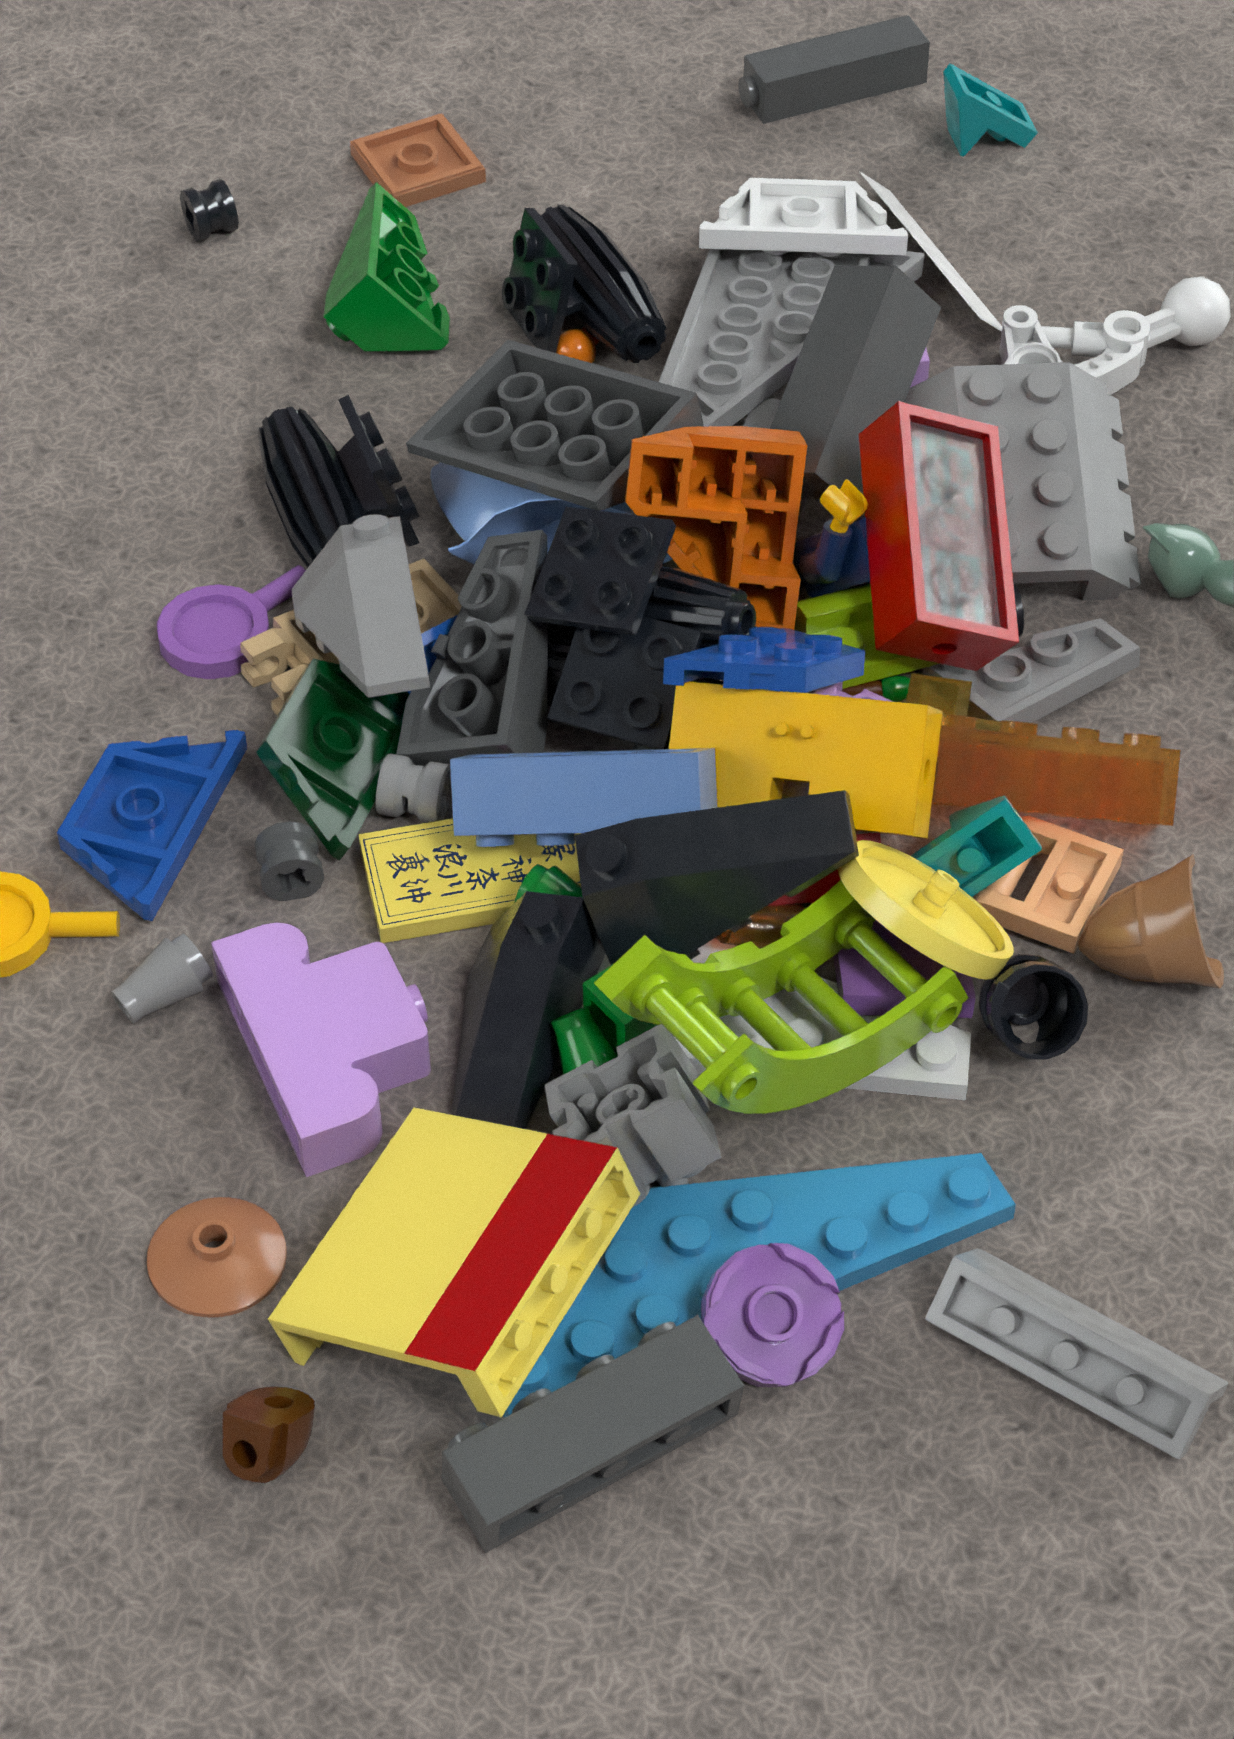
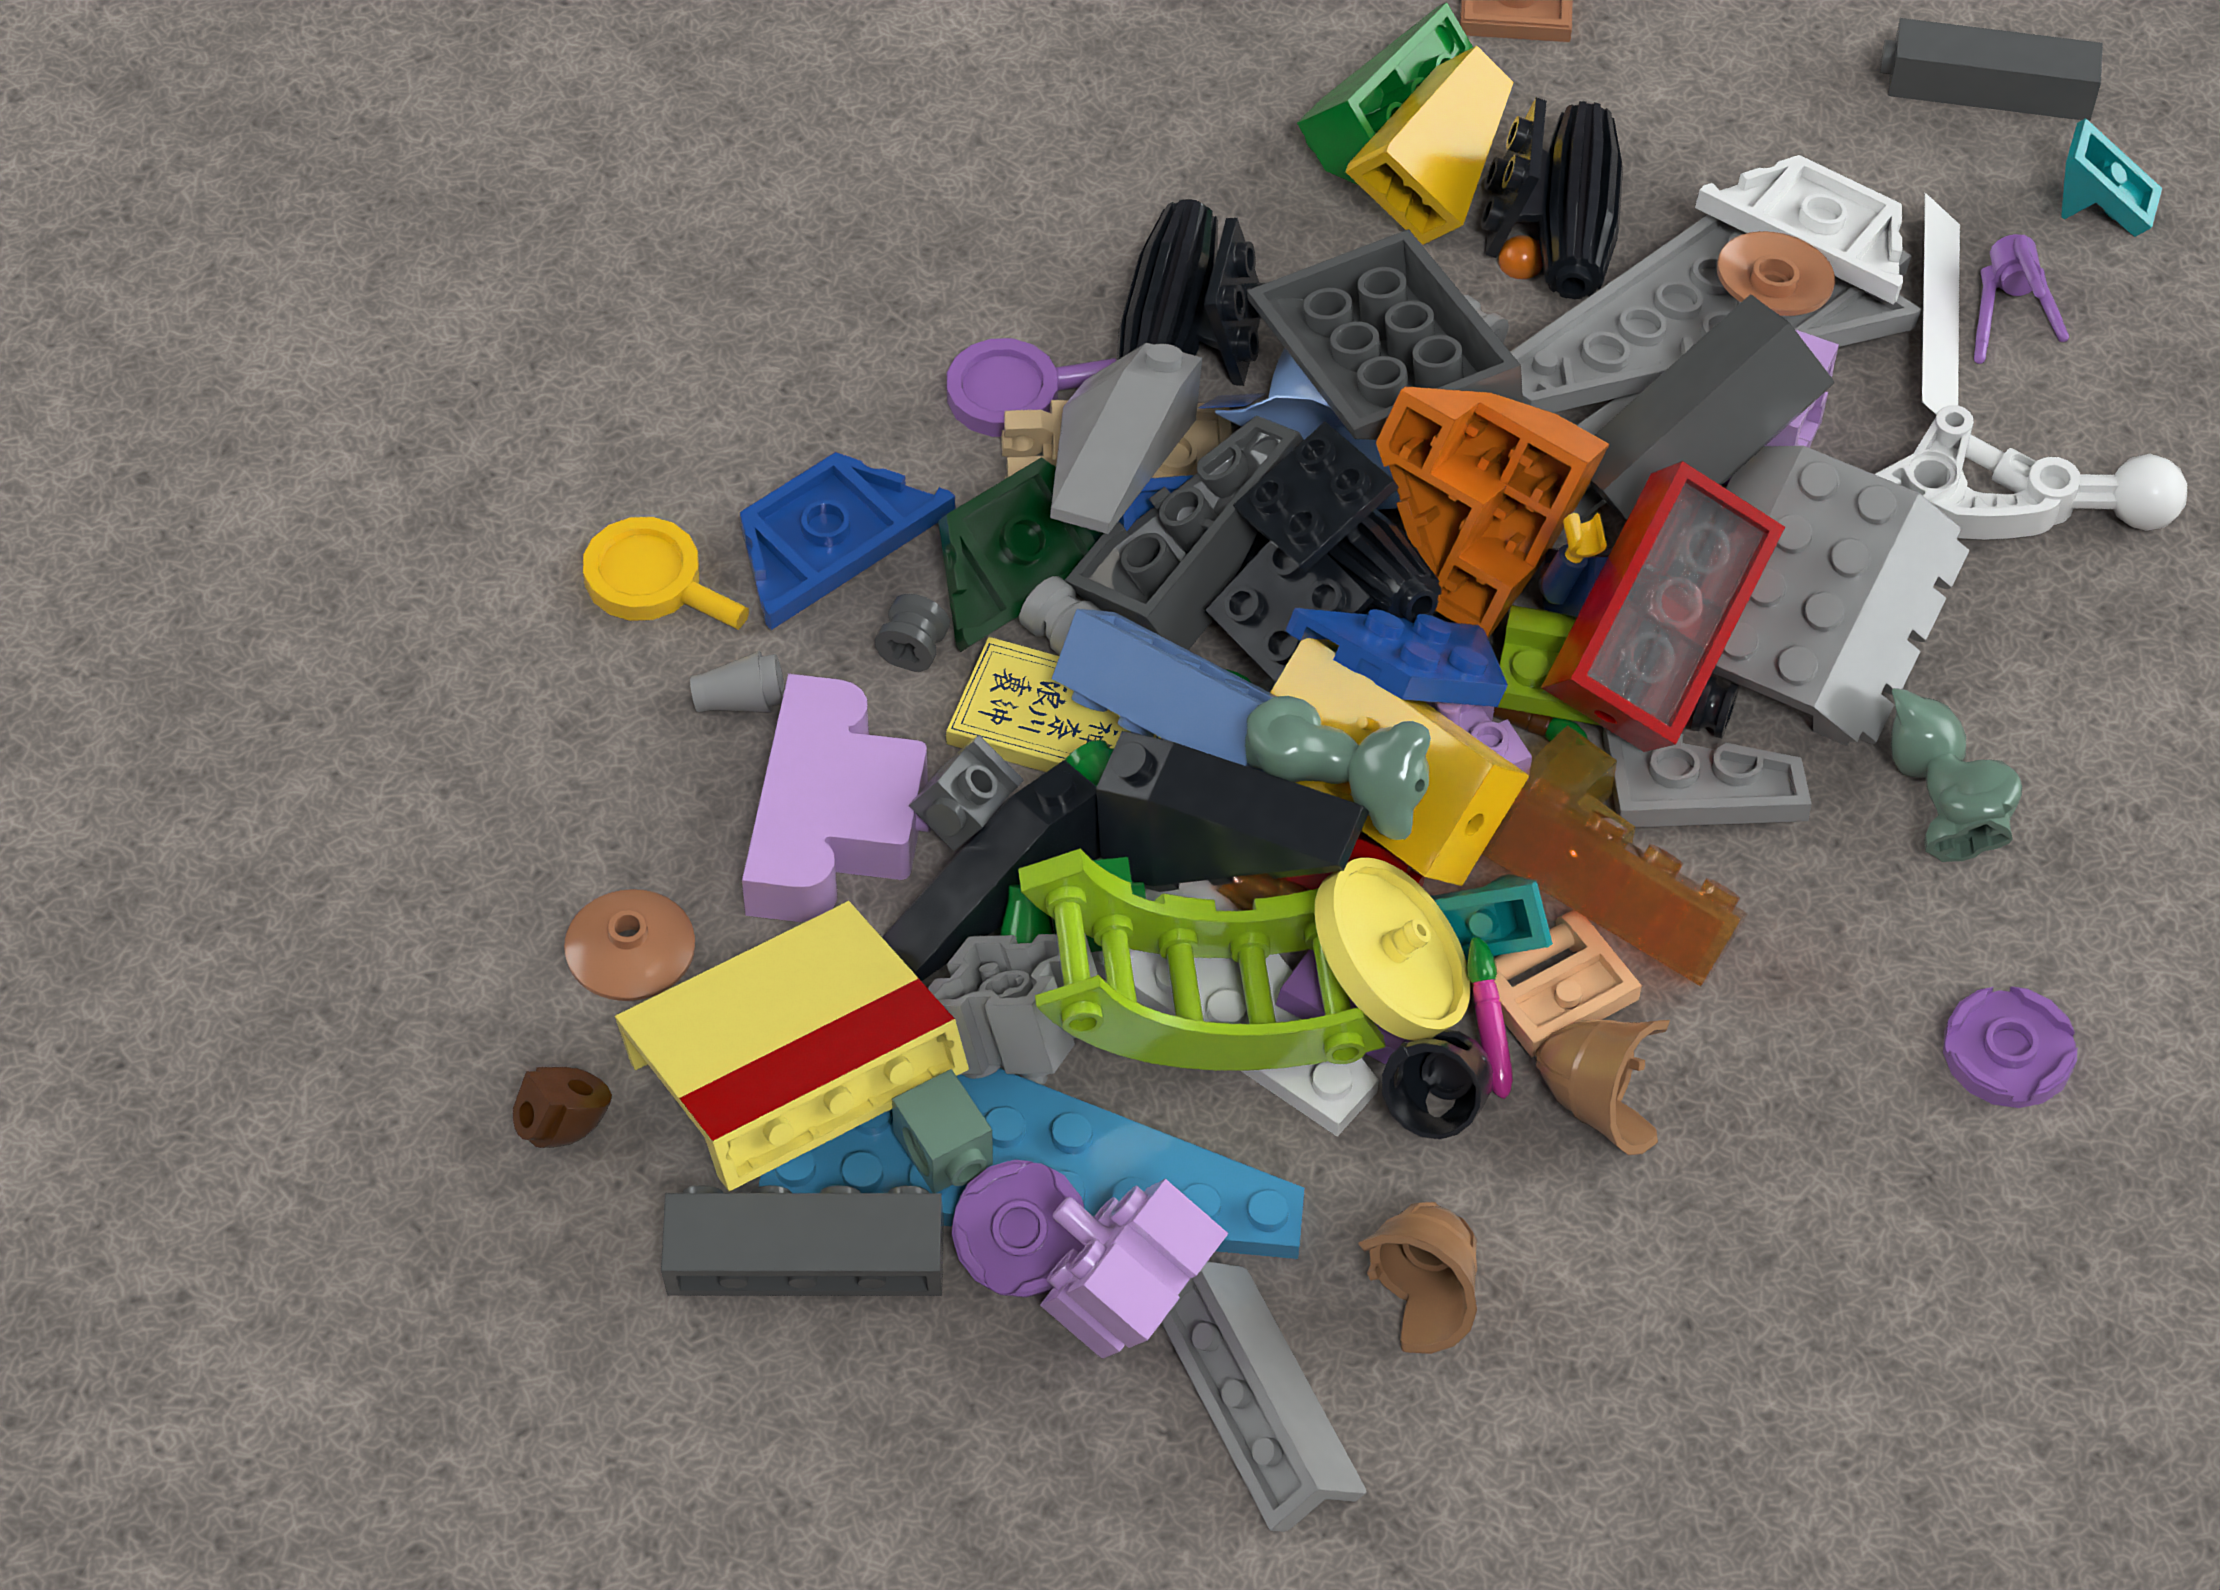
camera: 30 degrees right, 5 degrees up
(440, 545) = (1232, 400): none -> blue sticker
(449, 965) = (966, 792): none -> dark grey brick
(451, 288) = (1435, 146): none -> yellow slope
(653, 1263) = (943, 1132): none -> sand green brick
(803, 262) = (1777, 271): none -> nougat dish
(841, 754) = (1384, 771): none -> sand green animal
(912, 1290) = (1131, 1264): none -> lavender brick
(966, 200) = (2017, 272): none -> medium lavender plant
(1019, 927) = (1489, 1014): none -> dark pink piece
(1155, 1166) = (1431, 1264): none -> medium nougat helmet

